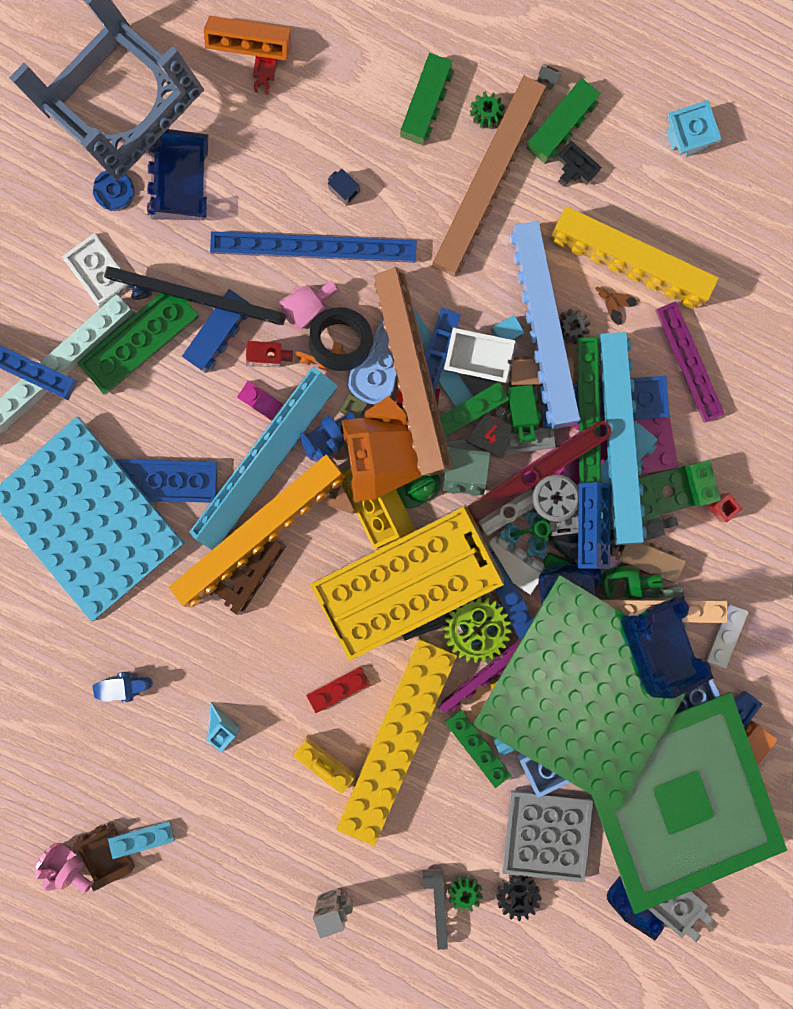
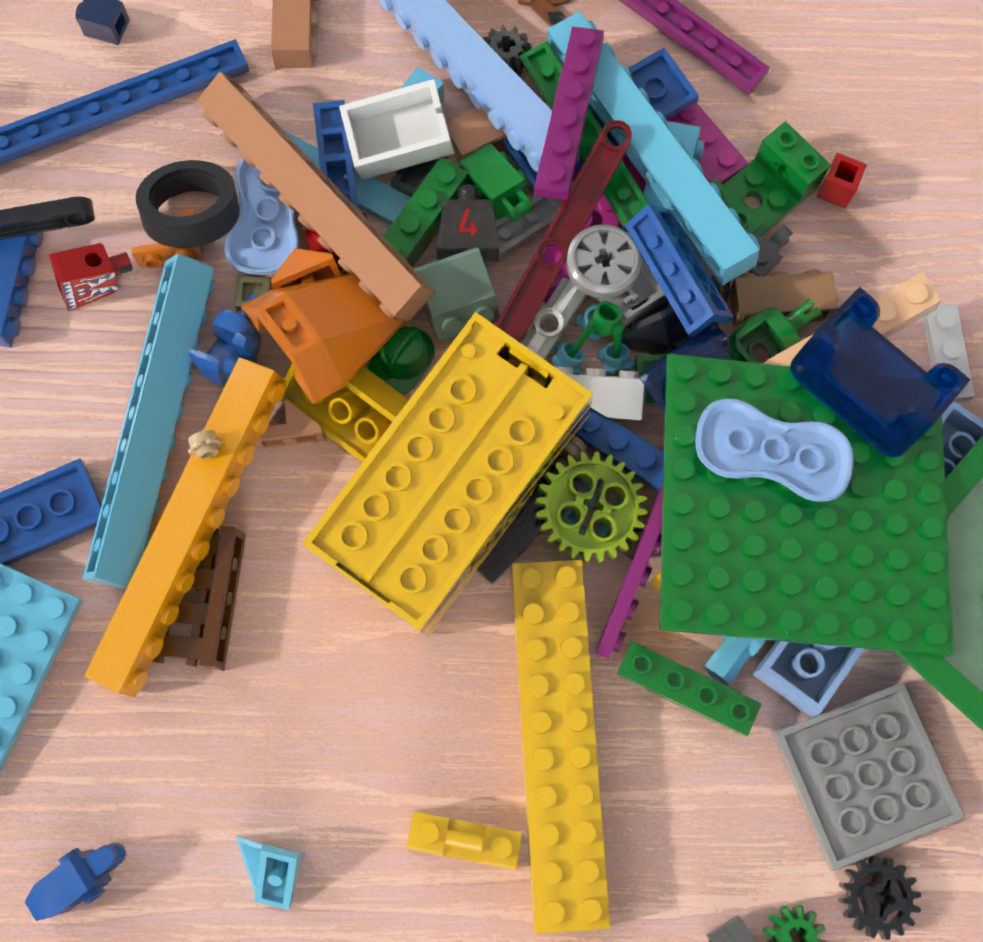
camera: 30 degrees left, 15 degrees down
(259, 400) = (108, 345): dark pink slope -> none
(284, 497) = (204, 444): none -> tan plate
(306, 304) = (115, 181): bright pink piece -> none
(338, 689) = (428, 711): red plate -> none
(583, 400) = (569, 113): none -> magenta plate
(597, 672) = (746, 443): none -> light blue plate

